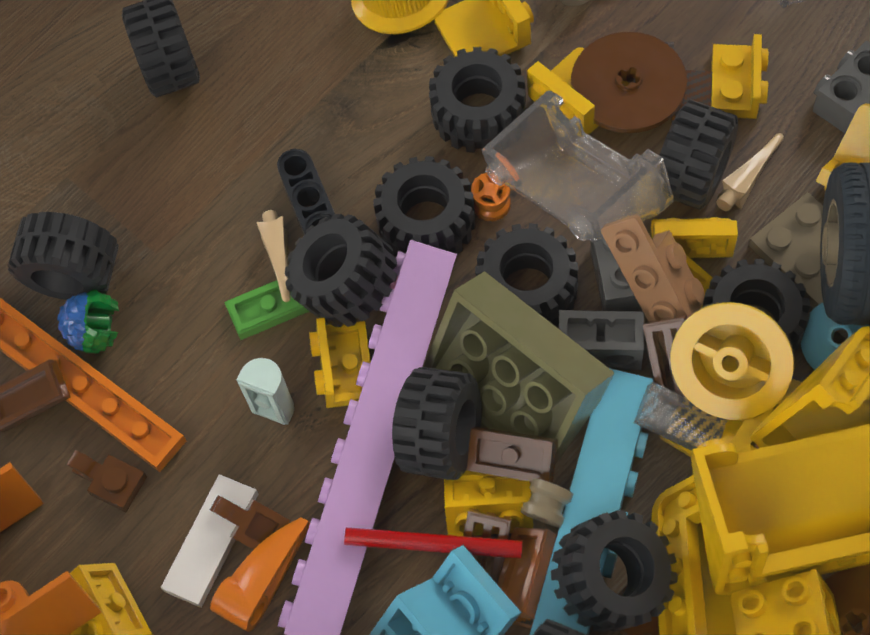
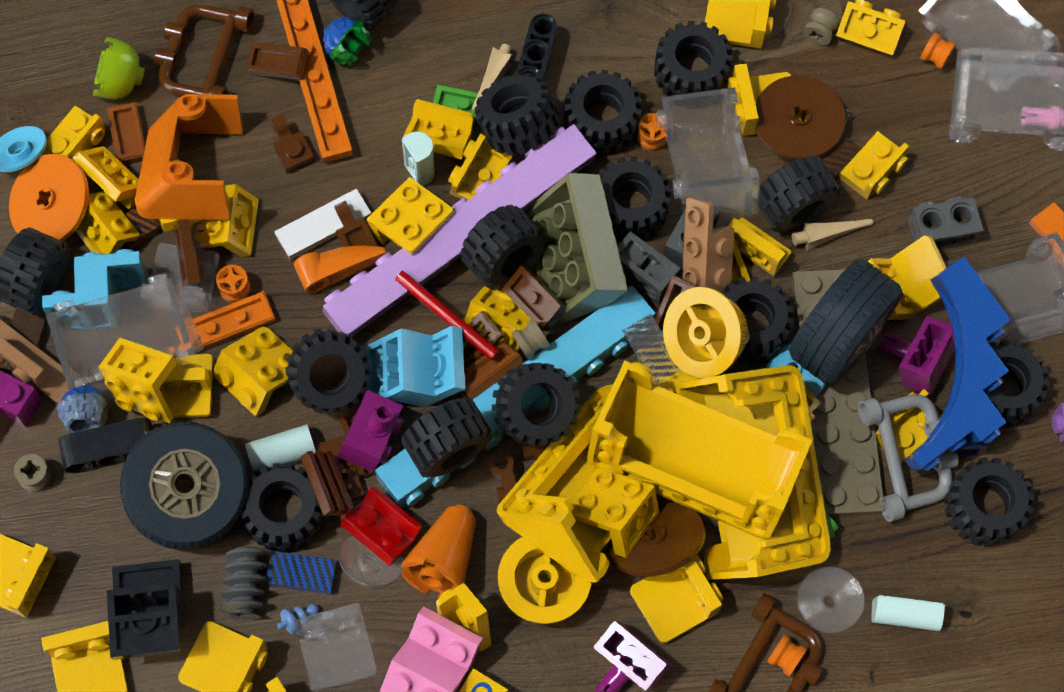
camera: 25 degrees right, 5 degrees up
(269, 336) = (446, 126): none -> yellow bracket
(306, 463) = (409, 216): none -> yellow bracket

